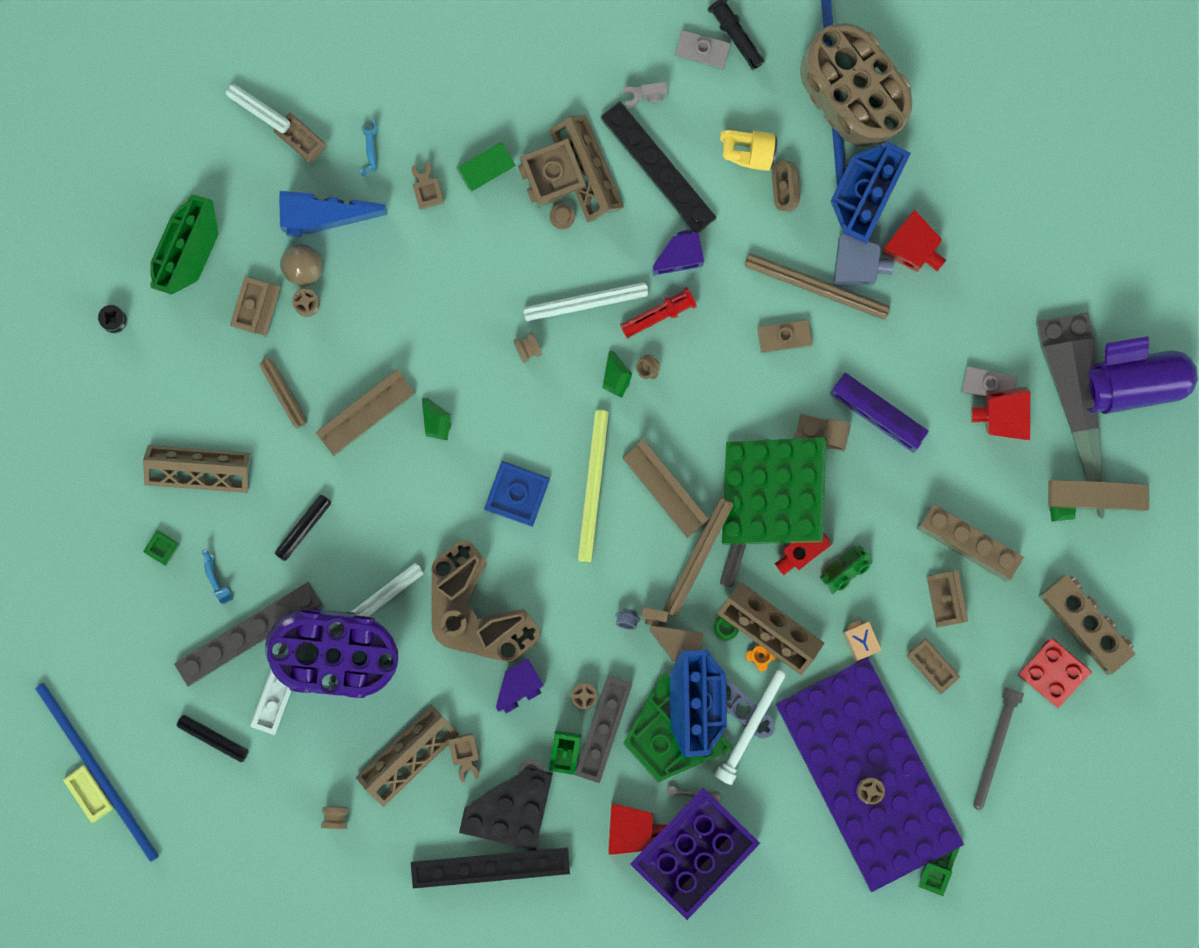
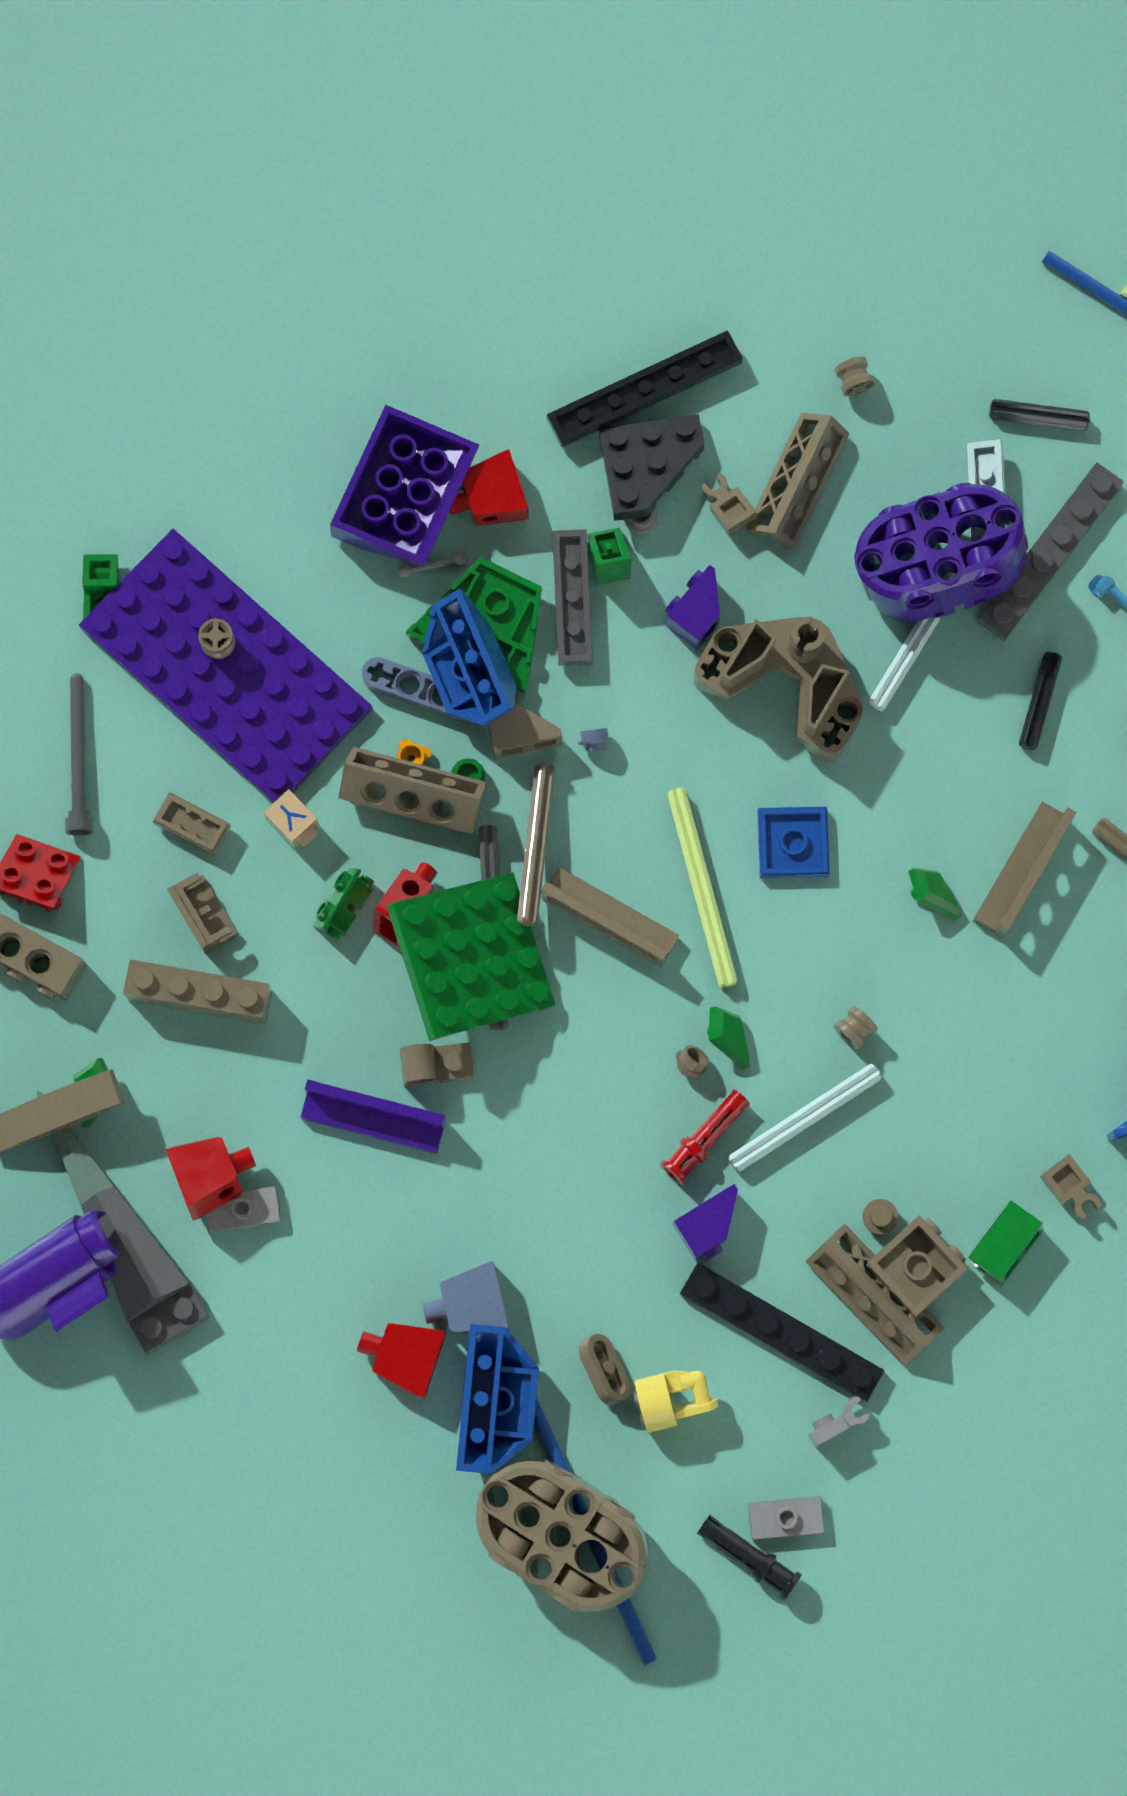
camera: 165 degrees right, 5 degrees down
(584, 696) = (610, 620): dark tan wheel -> none
(654, 617) = (563, 753): dark tan plate -> none
(727, 771) = (402, 601): light aqua piece -> none
(784, 336) = (531, 1171): dark tan plate -> none
(817, 286) = (514, 1252): dark tan axle -> none

